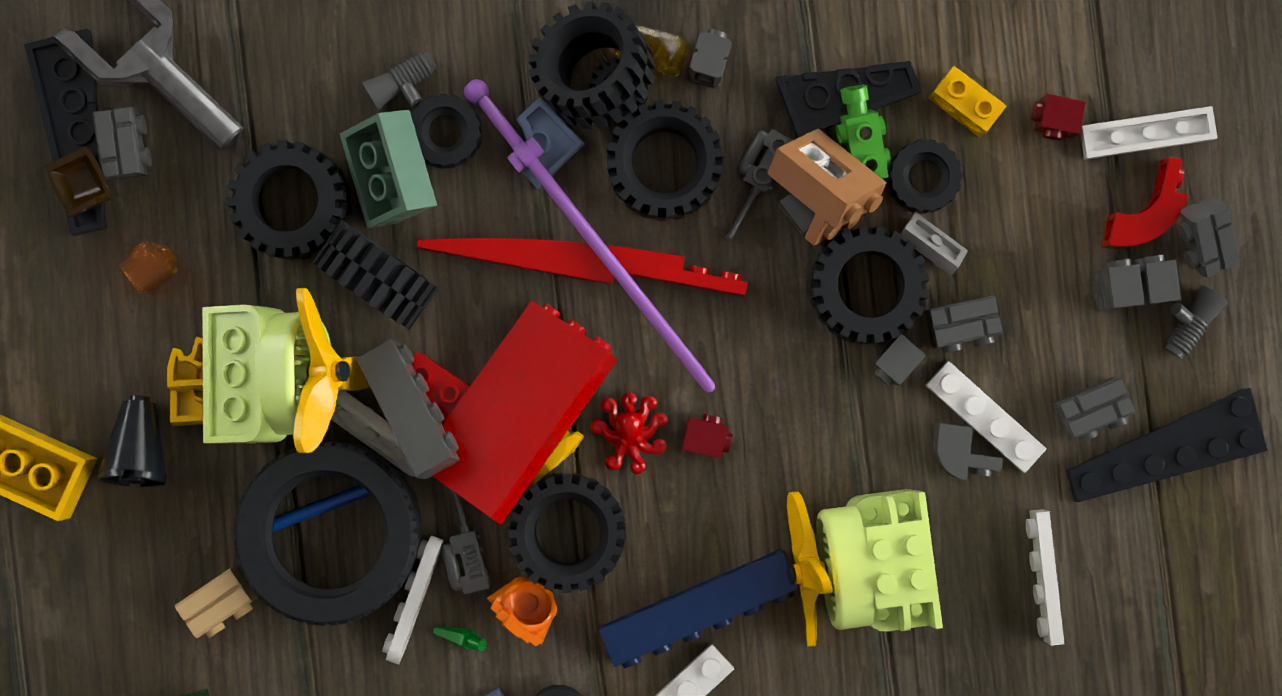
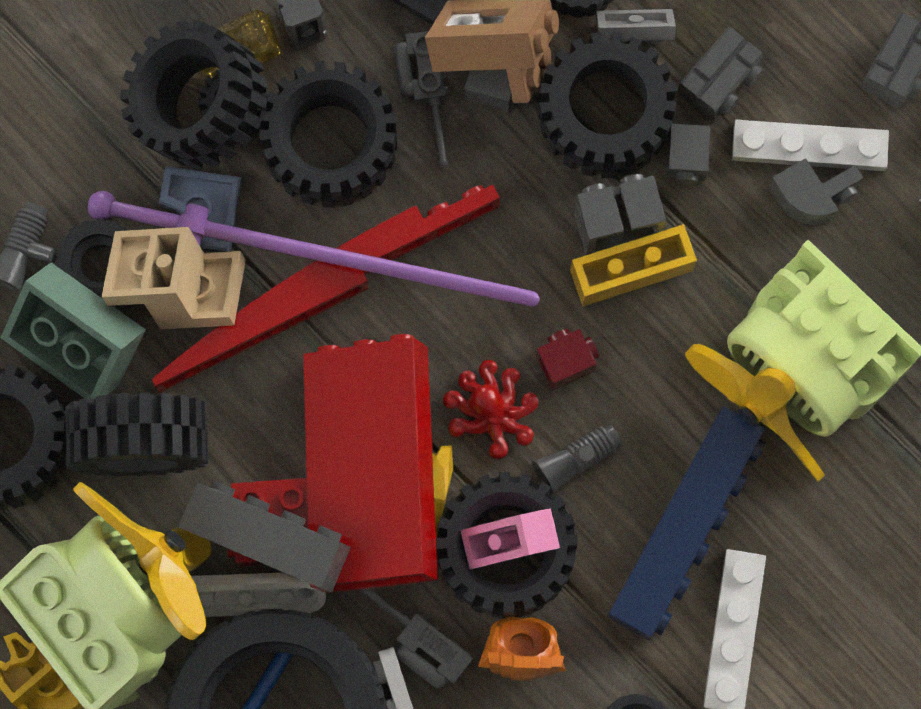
camera: 40 degrees left, 10 degrees down
(483, 183) = (174, 278): none -> tan bracket
(569, 534) = (510, 538): none -> bright pink brick
(662, 508) = (578, 456): none -> dark grey piece
(799, 410) = (633, 265): none -> yellow brick
(816, 370) = (619, 213): none -> dark grey piece

